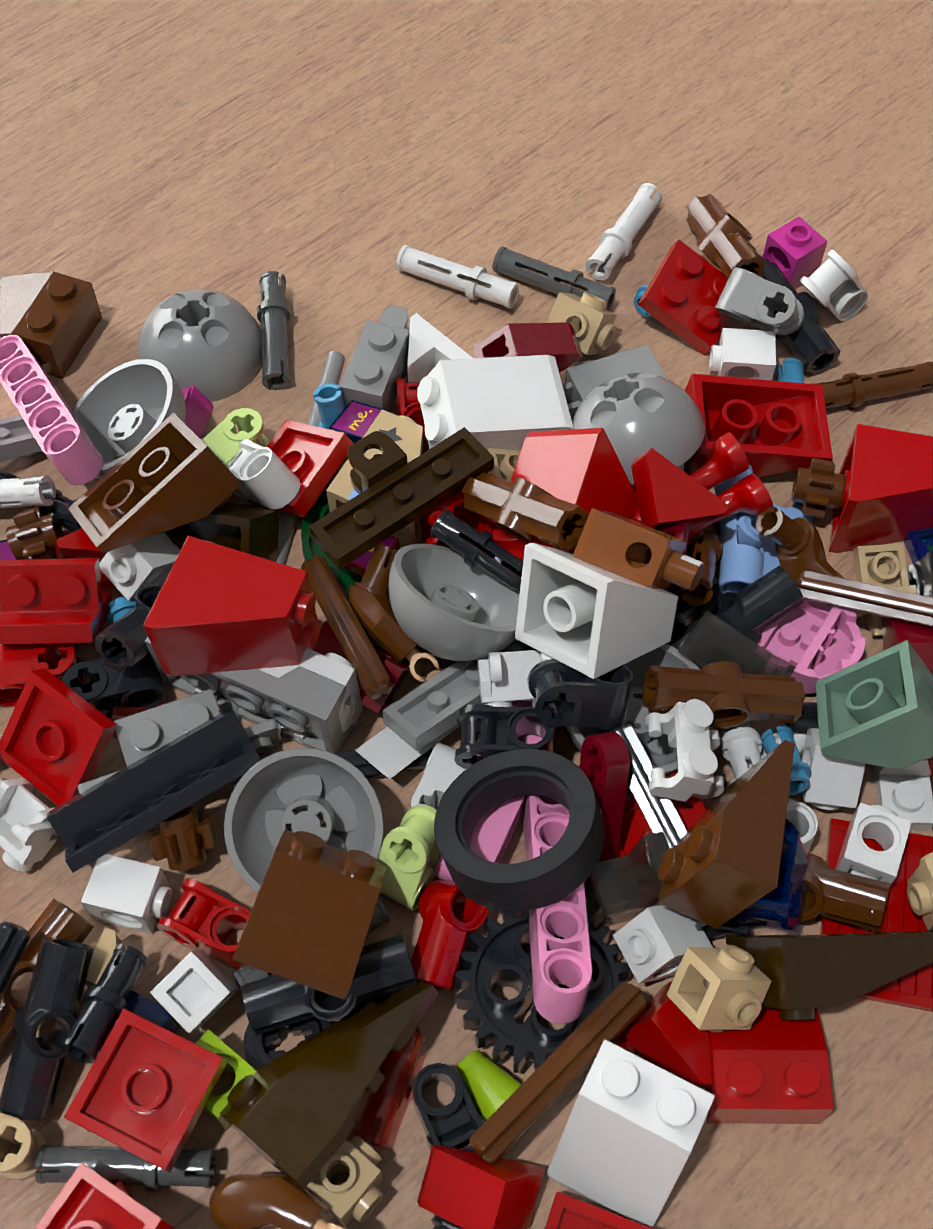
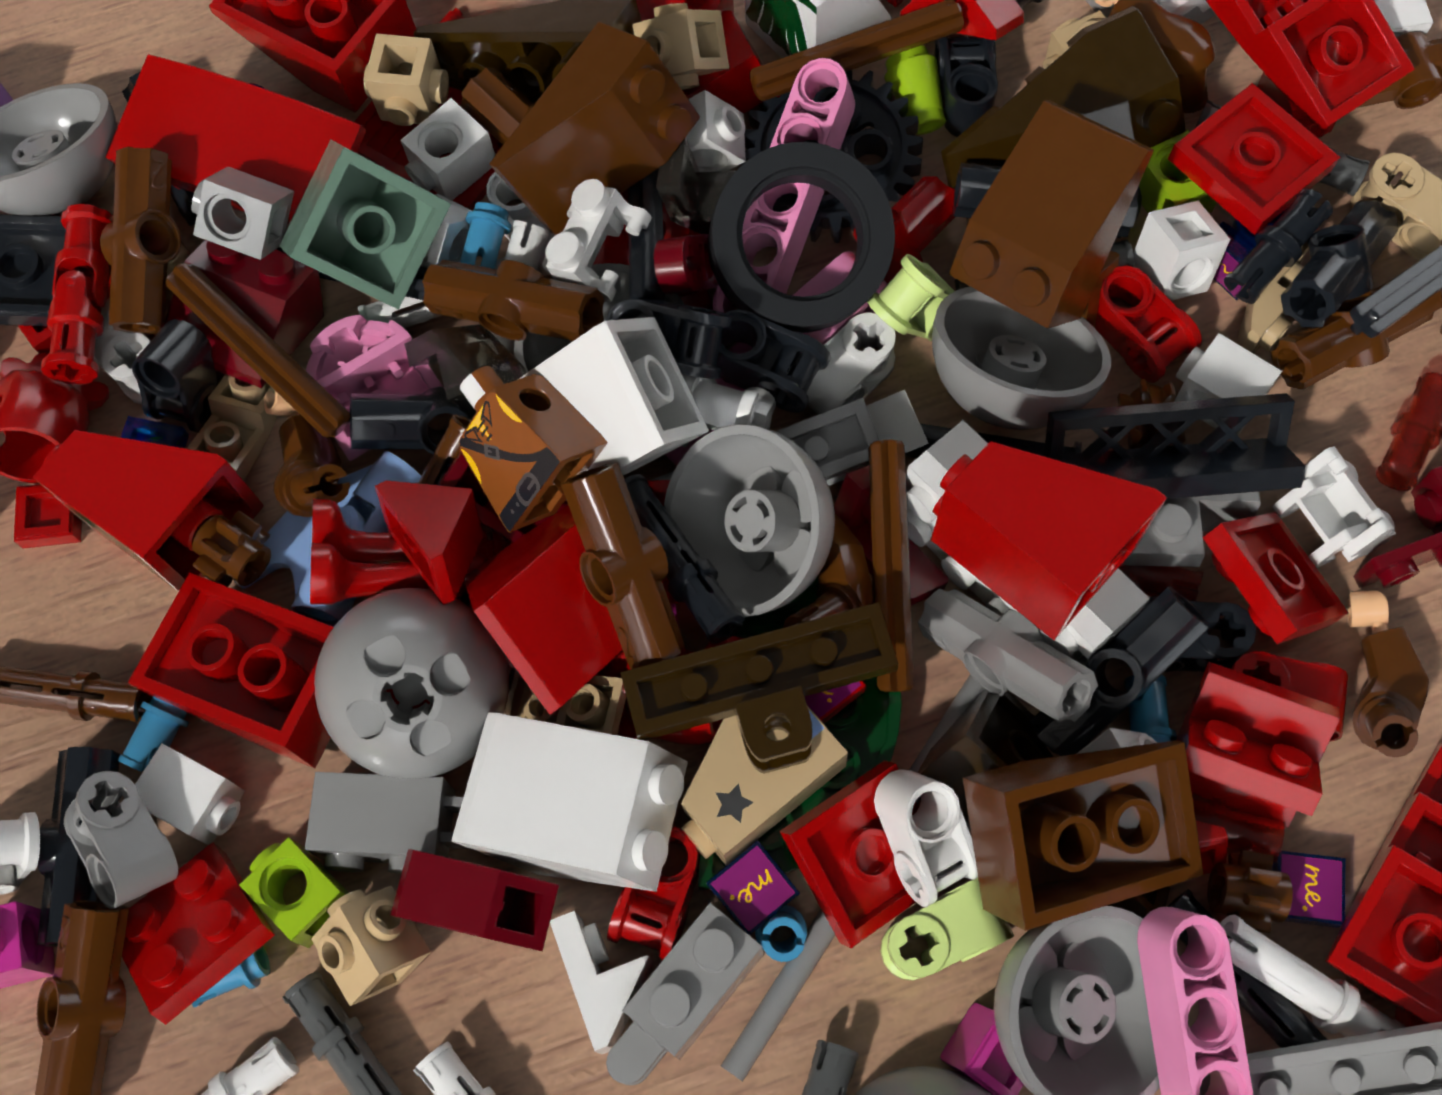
camera: 150 degrees left, 10 degrees up
(642, 327) = (266, 885): none -> lime brick

